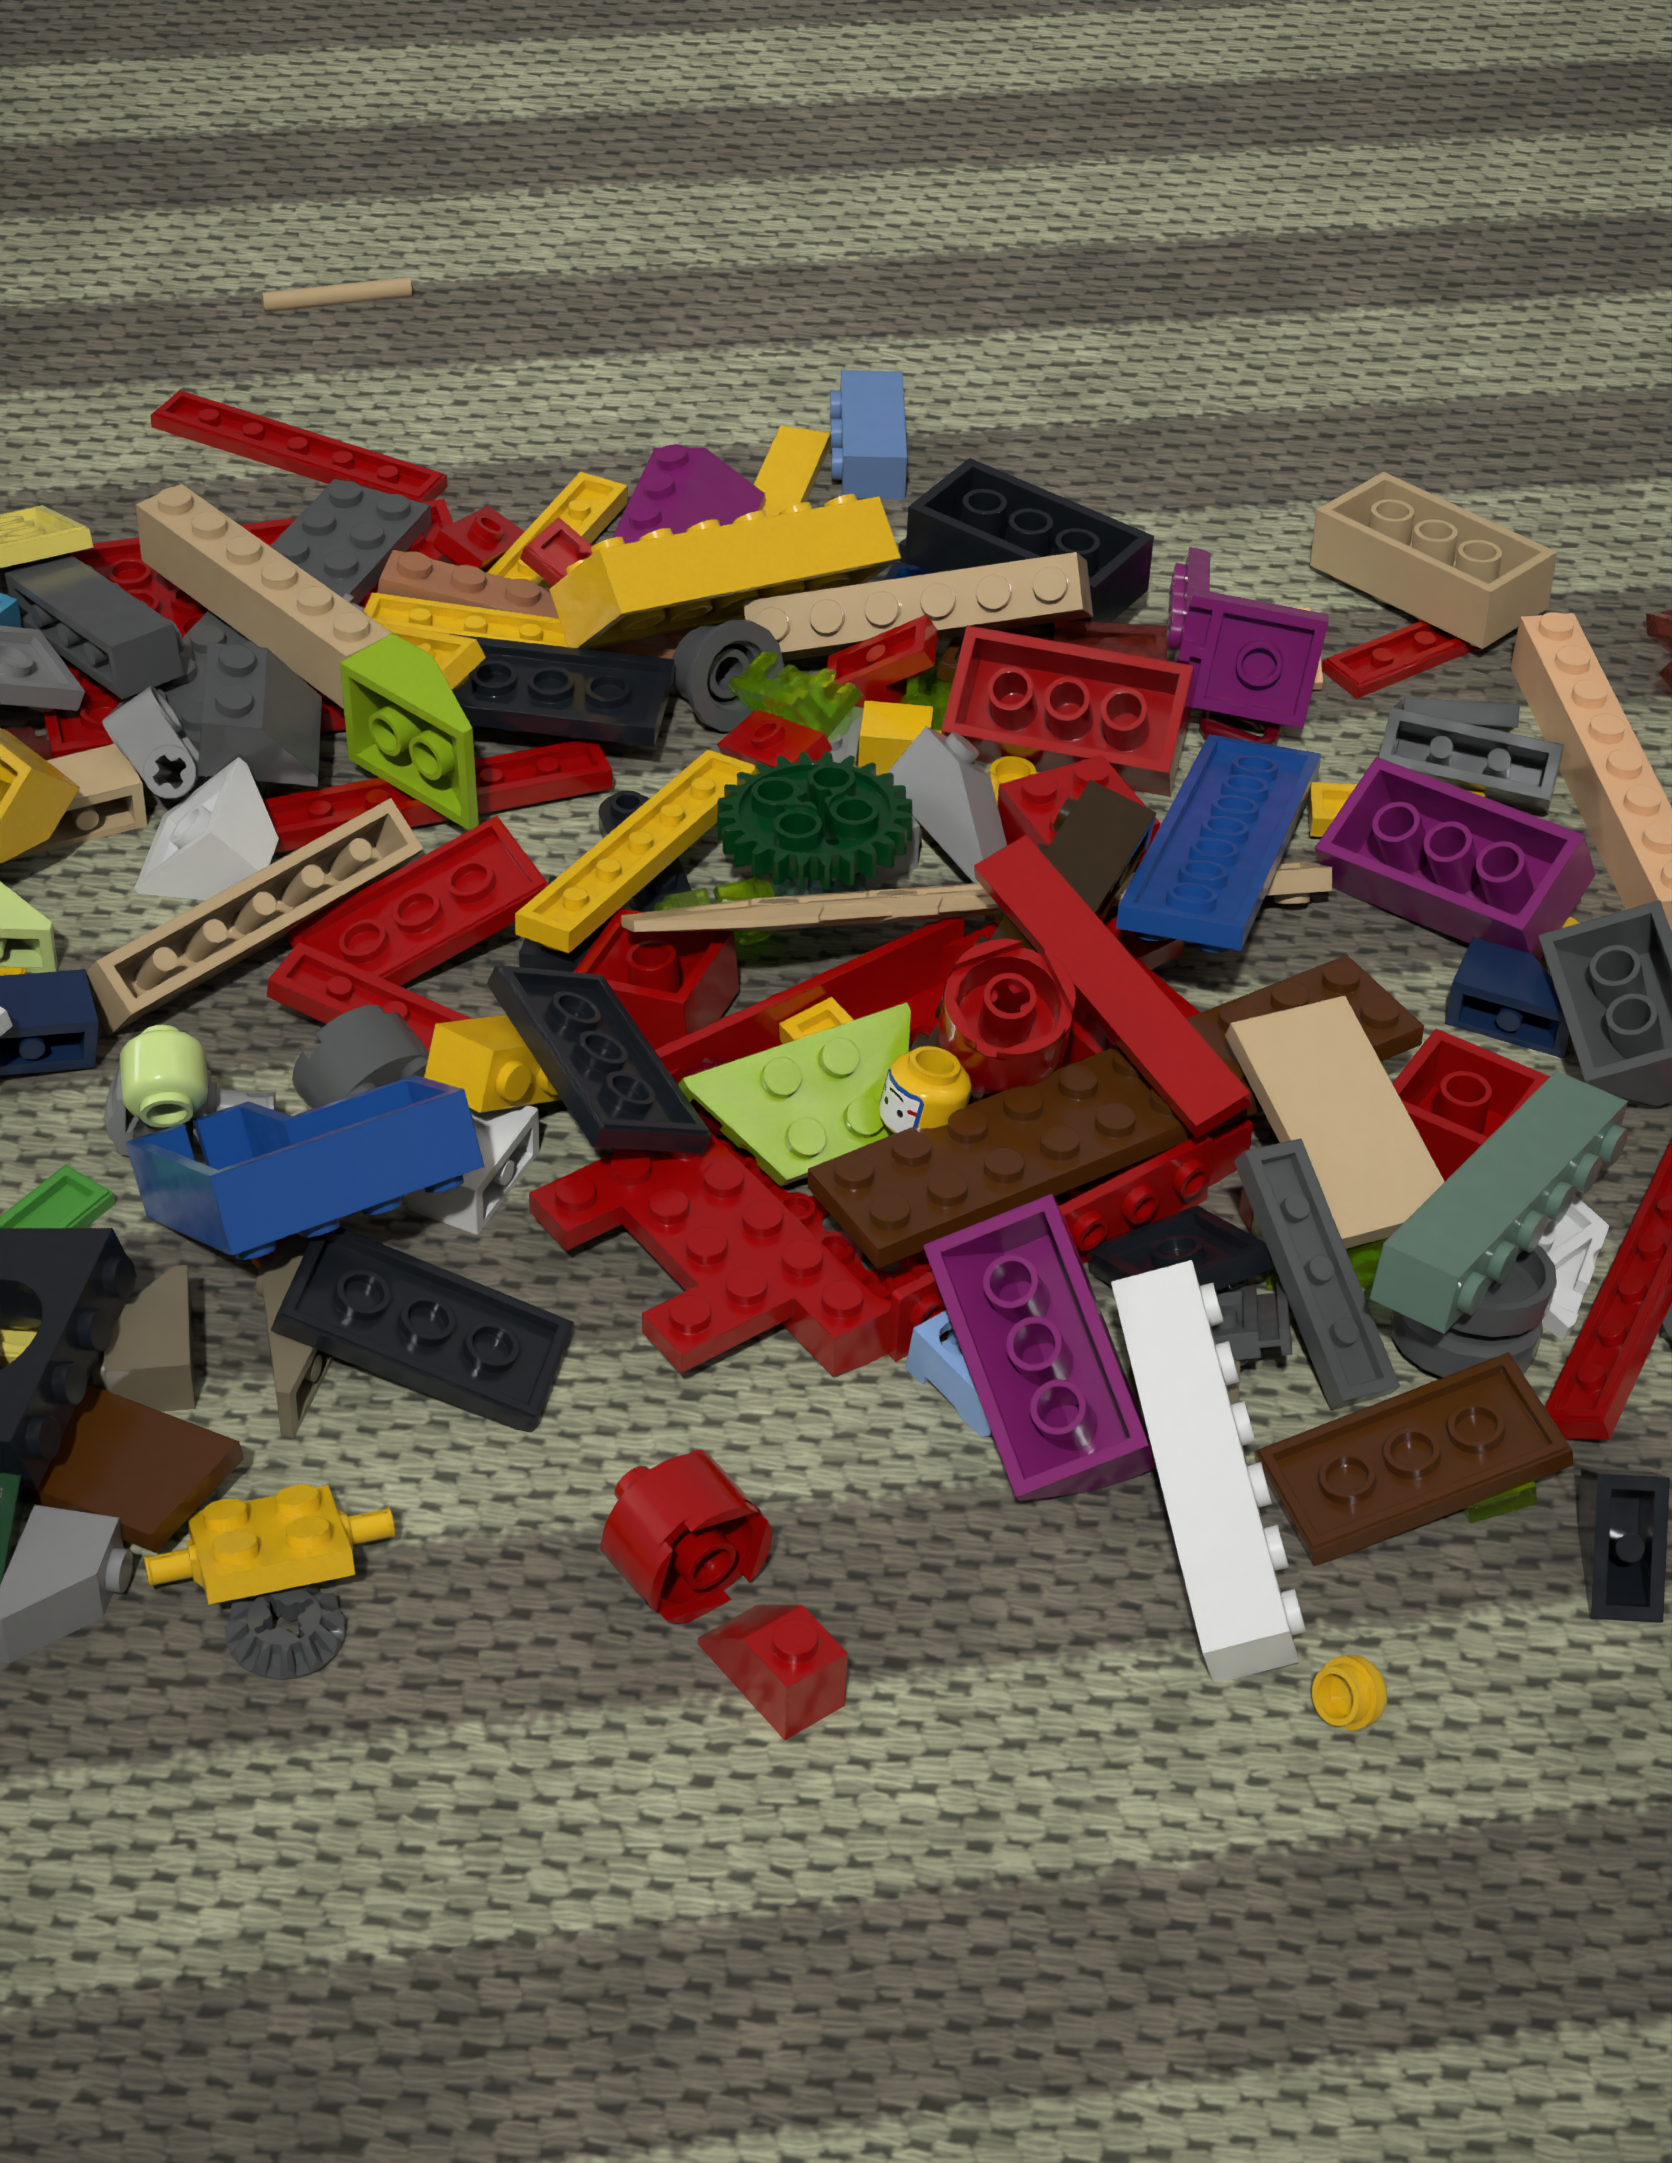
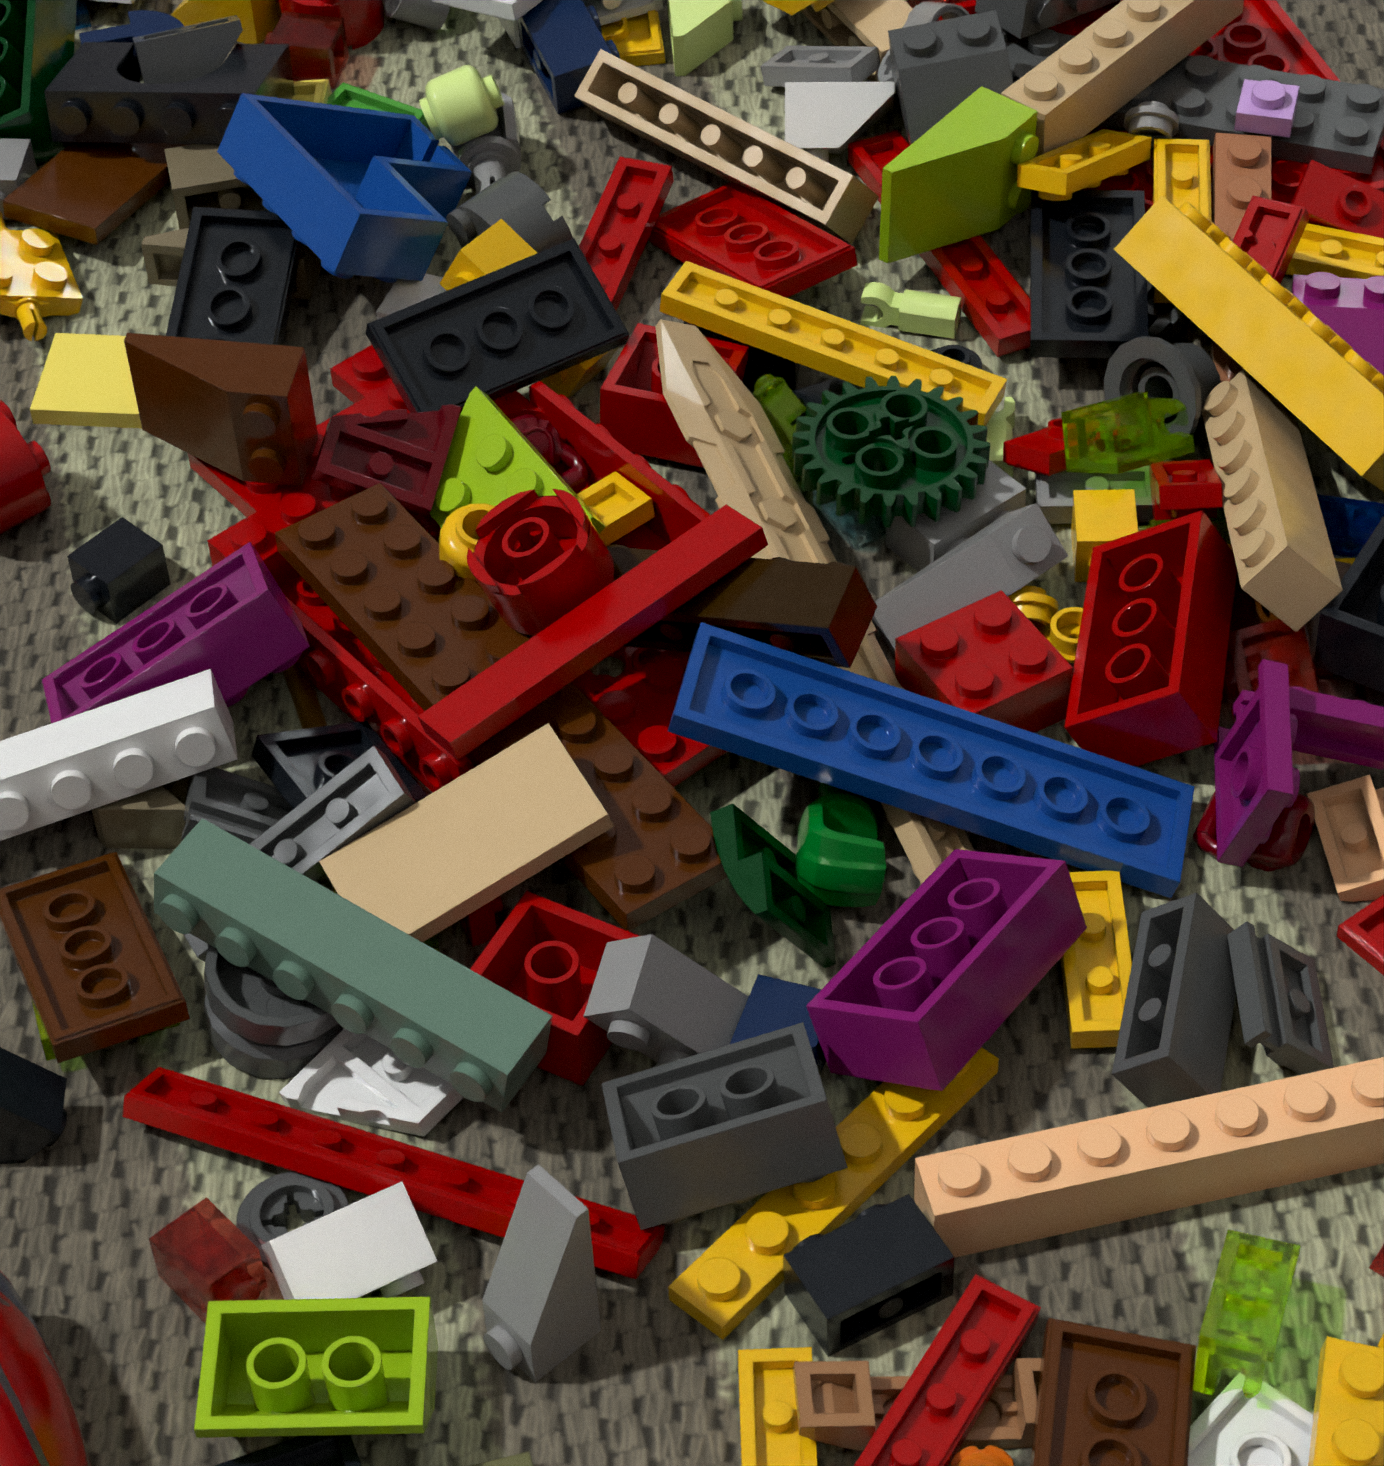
camera: 90 degrees right, 5 degrees up
(123, 842) = (820, 64): none -> light grey plate
(360, 539) = (1267, 108): none -> lavender plate
(478, 1475) = (86, 383): none -> light yellow tile
(543, 821) = (911, 310): none -> yellowish green bar
(710, 1250) = (227, 403): none -> reddish brown slope
(760, 1157) = (391, 449): none -> dark red wing
(838, 1440) = (118, 570): none -> black brick
(1292, 936) = (840, 849): none -> green piece
(1377, 949) = (767, 882): none -> dark green slope
(1511, 1024) = (661, 1001): none -> light grey brick

